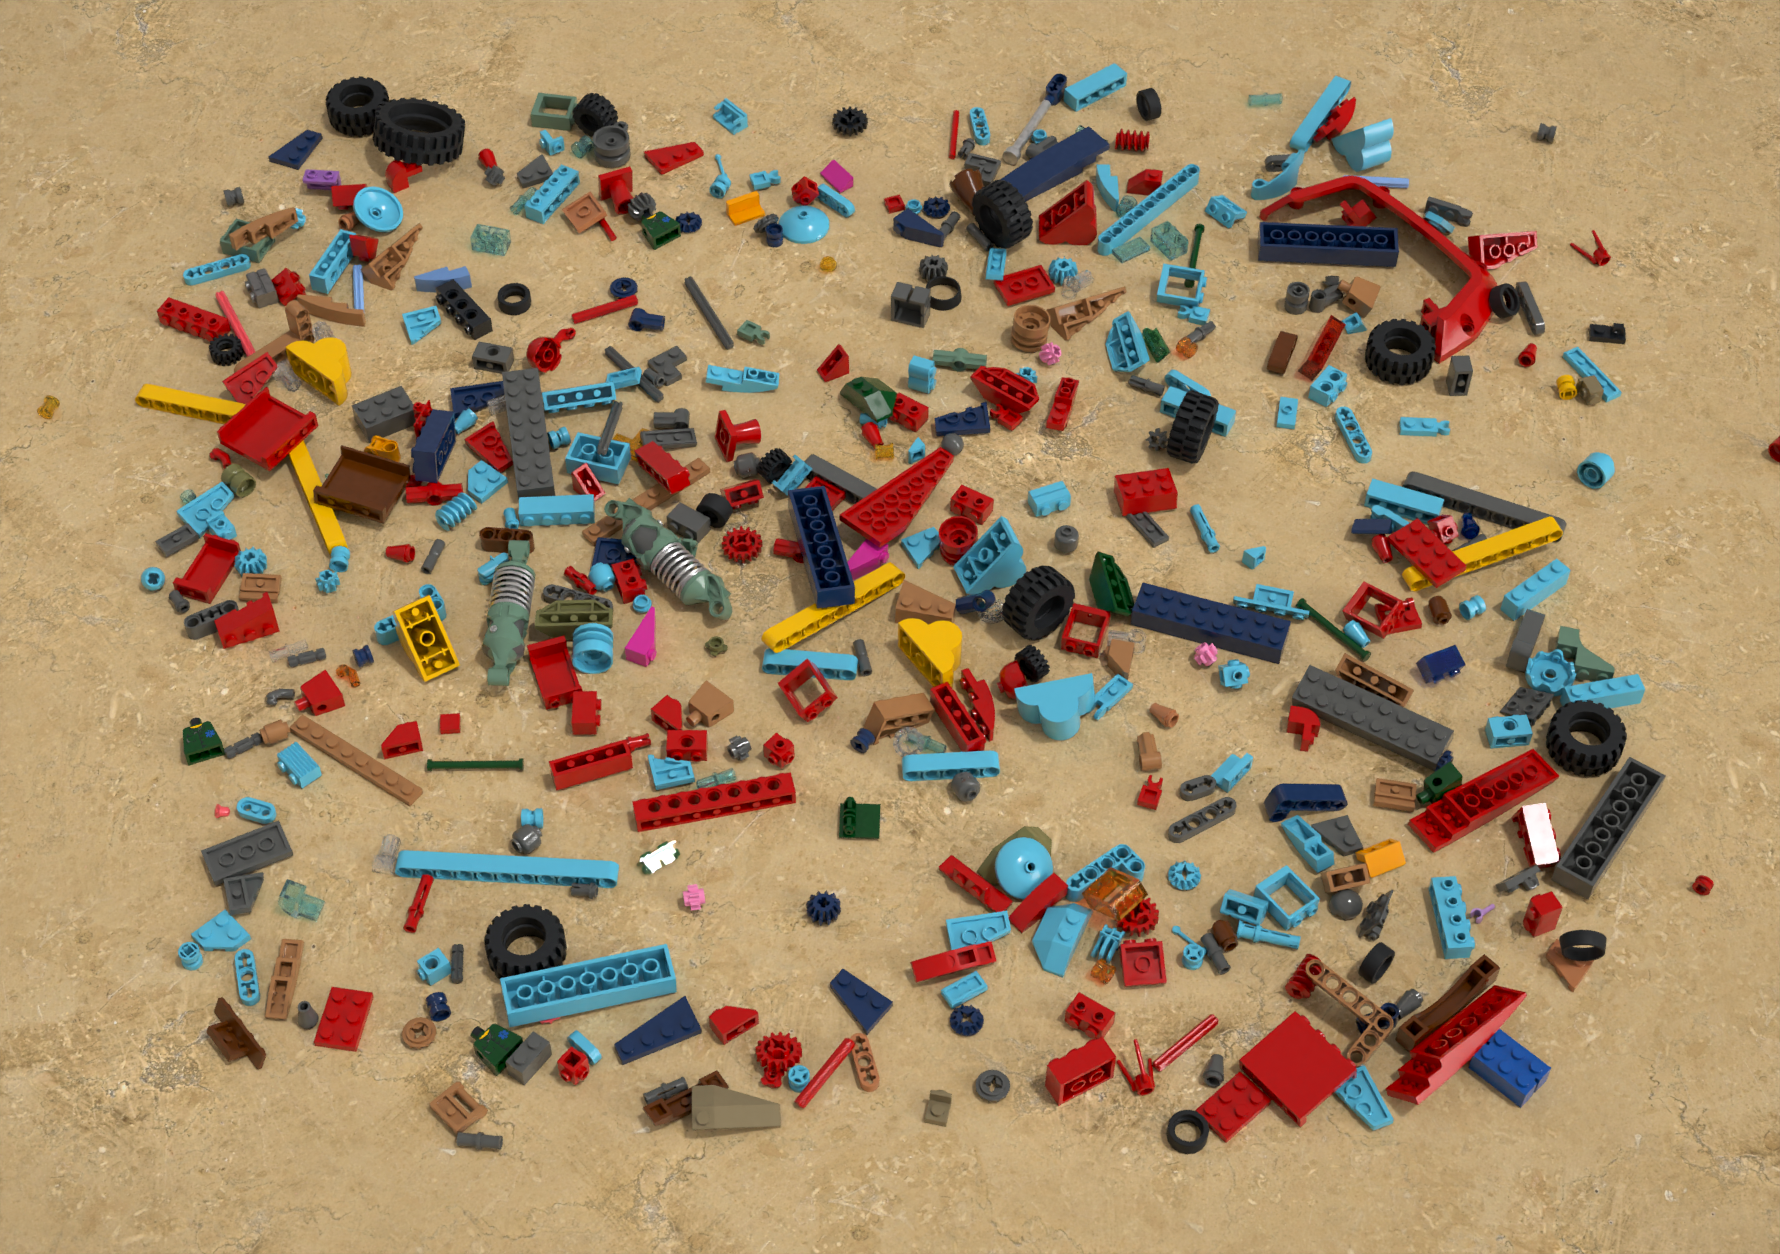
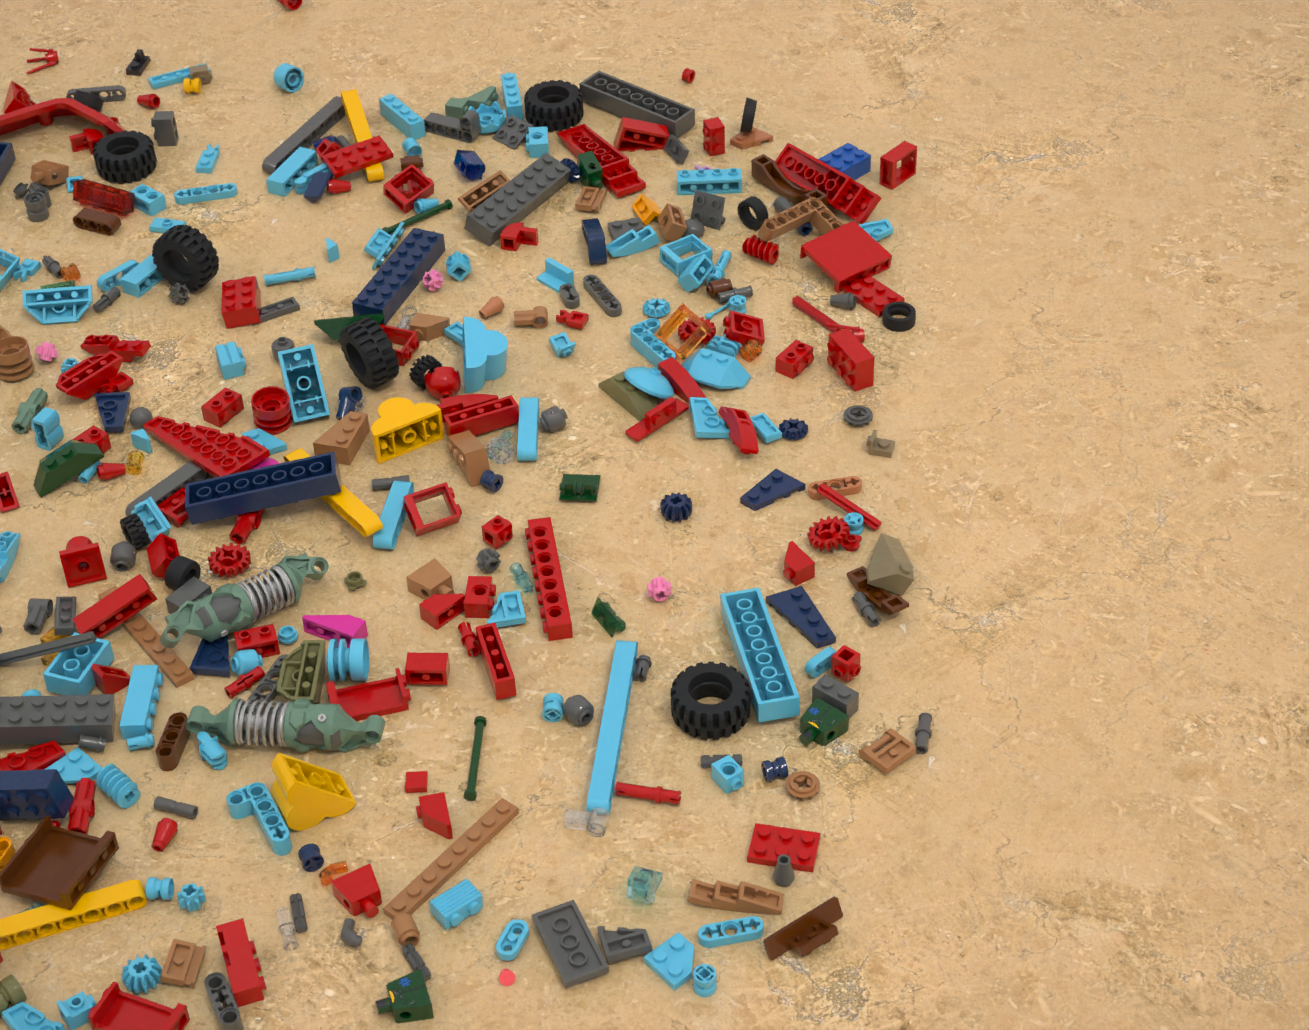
camera: 85 degrees left, 10 degrees down
(509, 486) = (92, 743): none -> dark grey pin
(1099, 785) = (562, 345): none -> medium azure bracket
(1512, 1131) = (889, 173): none -> red window

